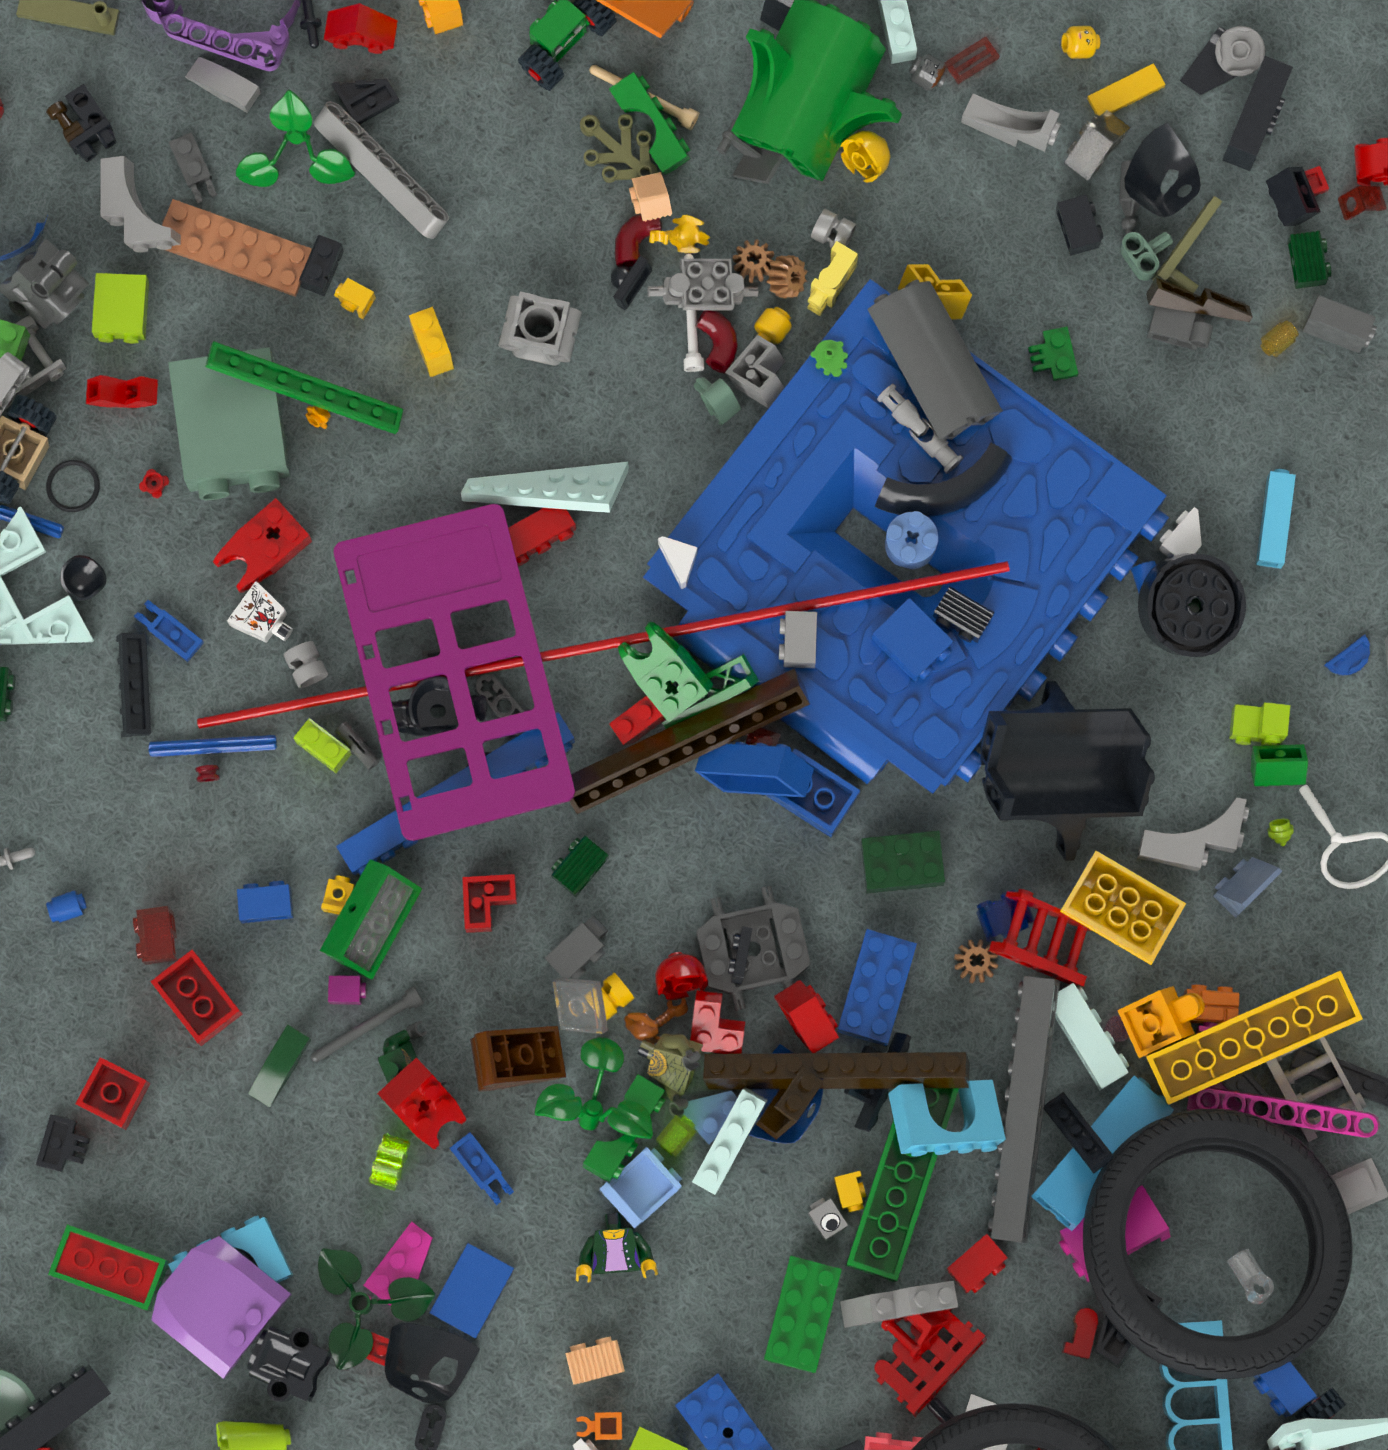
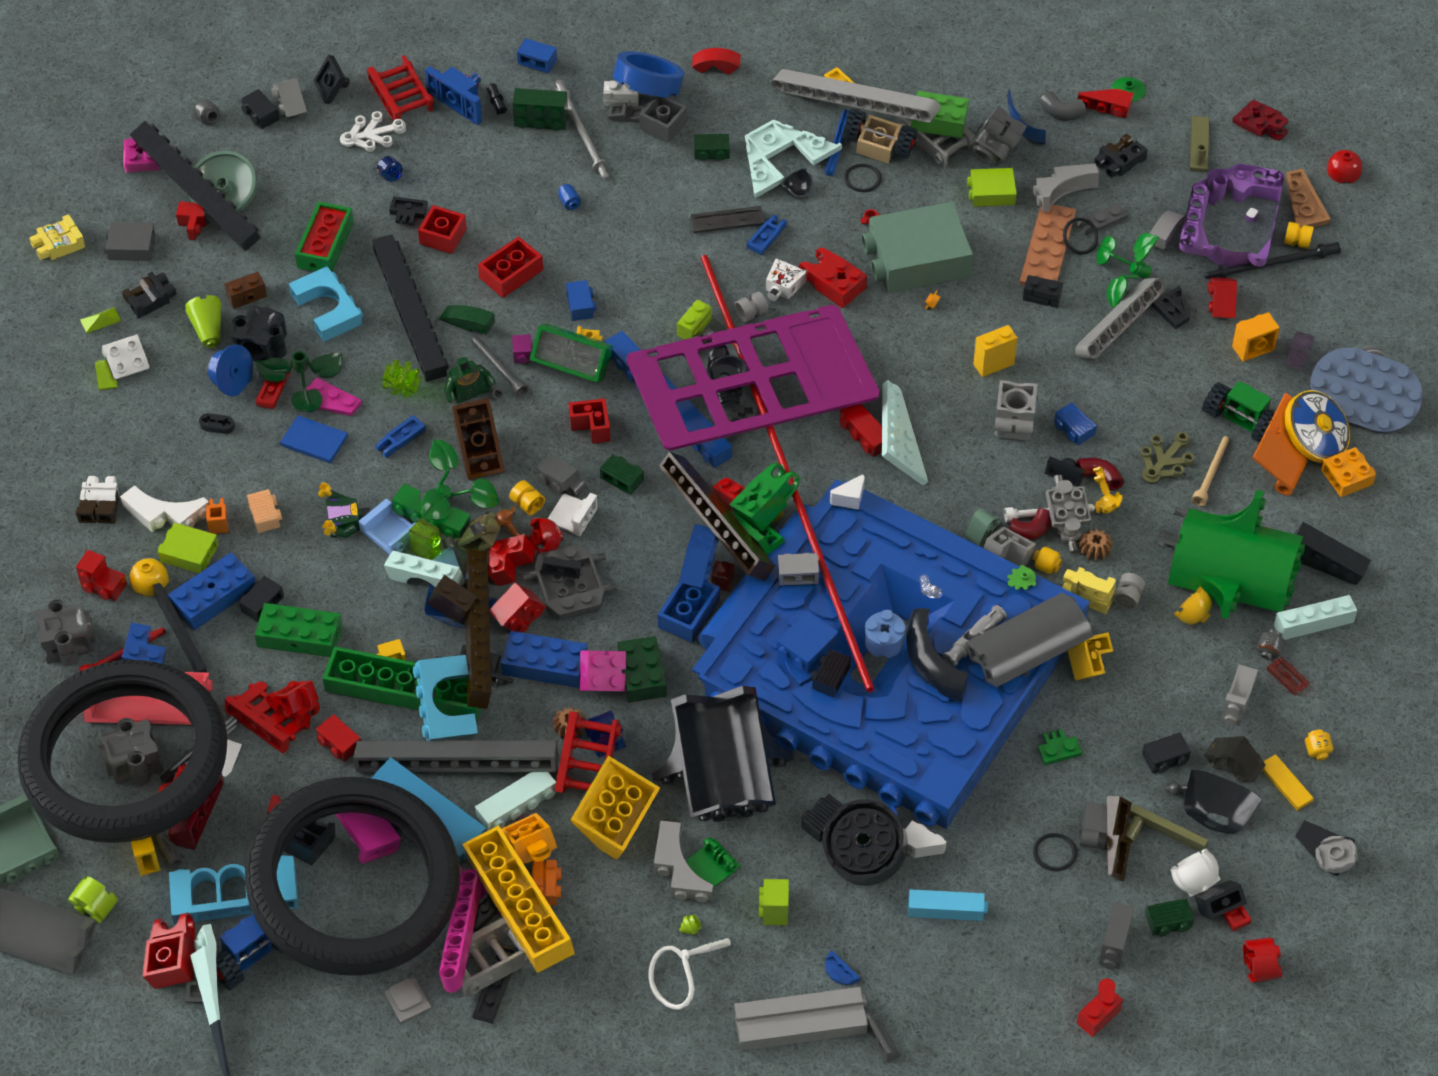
camera: 85 degrees right, 25 degrees down
(115, 392) = (931, 190): red brick -> none
(156, 934) = (552, 236): clear red brick -> none
(194, 1386) = (245, 290): none -> reddish brown brick
(207, 773) = (668, 262): dark red bush -> none
(214, 745) = (689, 265): blue axle -> none
(217, 1304) = (300, 291): medium lavender wedge -> none
(239, 186) = (1065, 236): none -> black tyre
(249, 1148) = (409, 308): none -> black brick
(304, 387) = (947, 279): green tile -> none
(350, 1407) = (231, 369): none -> blue piece
(355, 297) = (1022, 313): yellow brick -> none
(416, 1350) = (270, 403): black piece -> none
(421, 1102) = (440, 386): red brick -> none
(554, 258) = (1075, 424): none -> blue brick
(580, 1005) = (517, 475): clear tile -> none
(633, 97) = (1173, 483): green arch -> none
(638, 937) = (574, 514): none -> white bracket
(650, 197) = (1131, 472): light nougat brick -> none
(744, 1365) = (262, 592): none -> black brick
(787, 276) = (1093, 560): medium nougat gear -> none
(827, 1218) = (369, 639): light grey brick -> none
(839, 477) = (929, 589): none -> clear arm
(898, 1303) = (304, 677): light grey arch -> none
(920, 913) = (602, 670): none -> dark pink piece
(1078, 1132) = (438, 786): black tile -> none
(1140, 653) = (815, 820): none -> black brick
(1145, 254) = (1151, 799): sand green beam -> none
(1194, 797) = (712, 862): none -> green hinge
(1202, 404) = (1035, 848): none -> black tyre
(1245, 885) = (639, 896): sand blue slope -> none
(1249, 1274) = (323, 881): clear piece -> none
(1257, 218) = (1196, 872): none -> white piece
(1258, 113) = (1284, 866): black brick -> none
(1279, 338) = (1098, 899): clear yellow brick -> none
(1279, 765) = (742, 915): green brick -> none
(1367, 199) = (1230, 957): clear red bracket -> none

